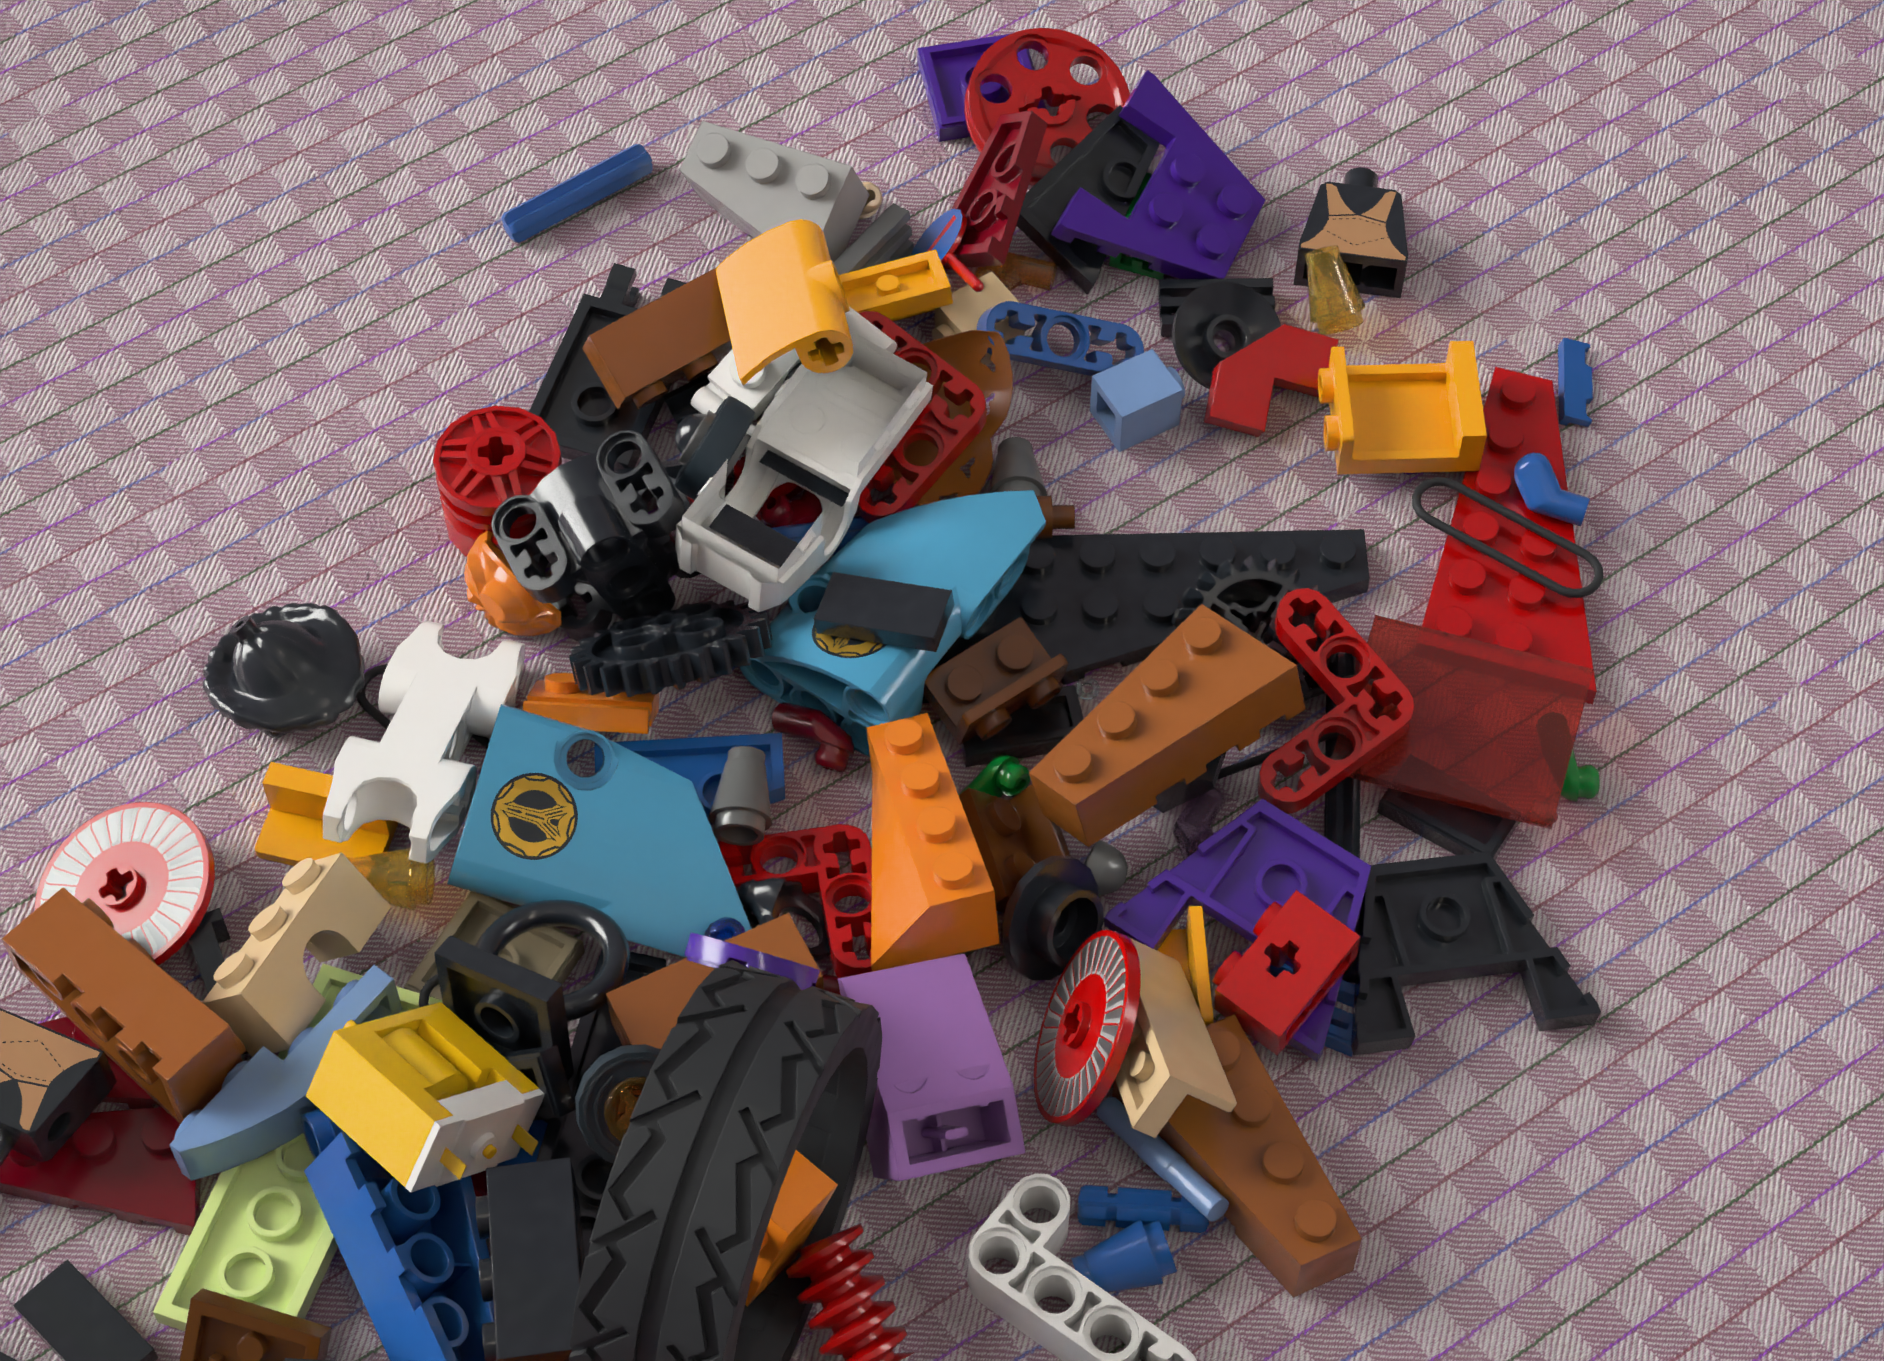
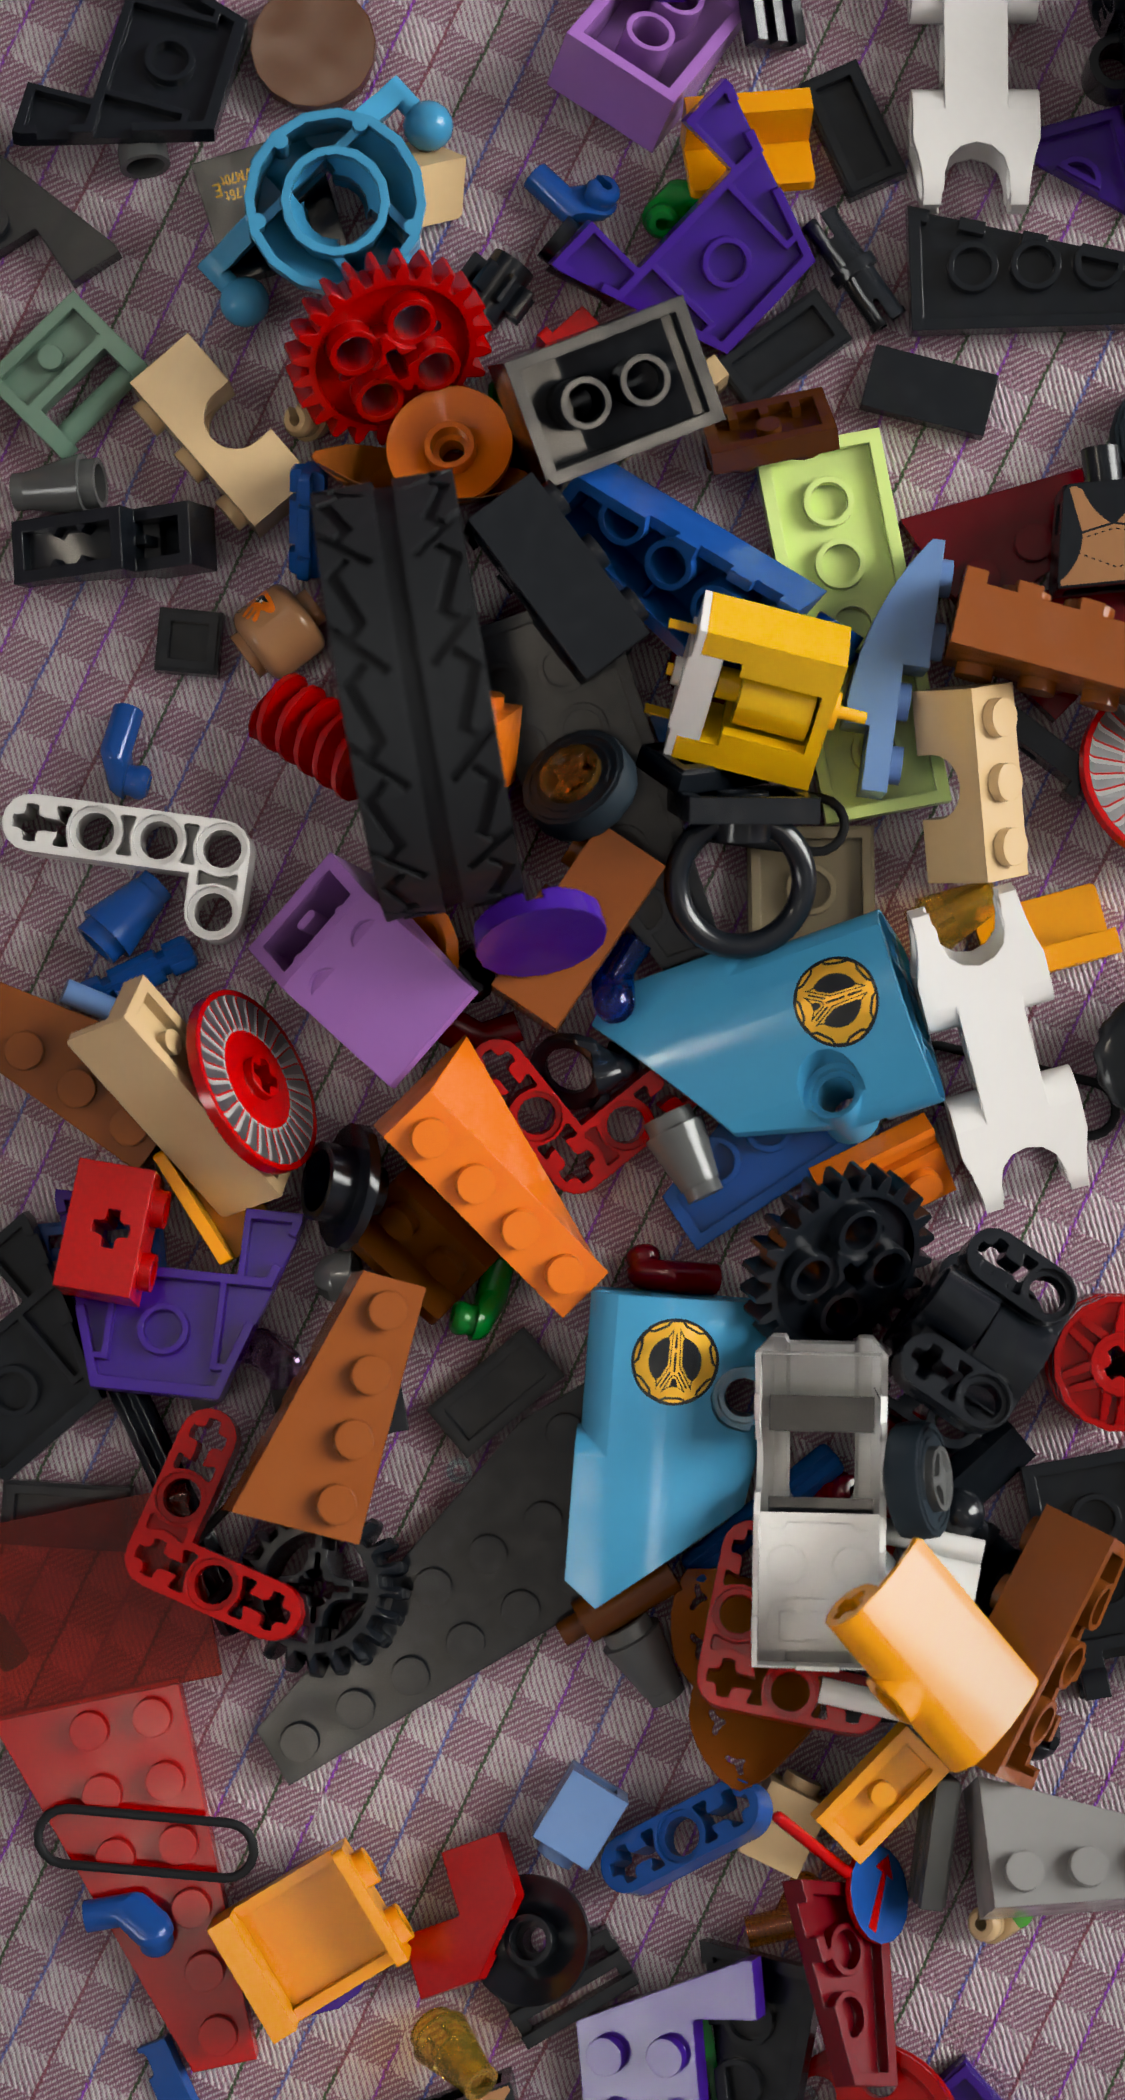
camera: 155 degrees right, 30 degrees up
(500, 594) = (1058, 1247): orange hat -> none
(884, 611) = (650, 1383): black tile -> none
(992, 680) = (530, 1405): reddish brown bracket -> none

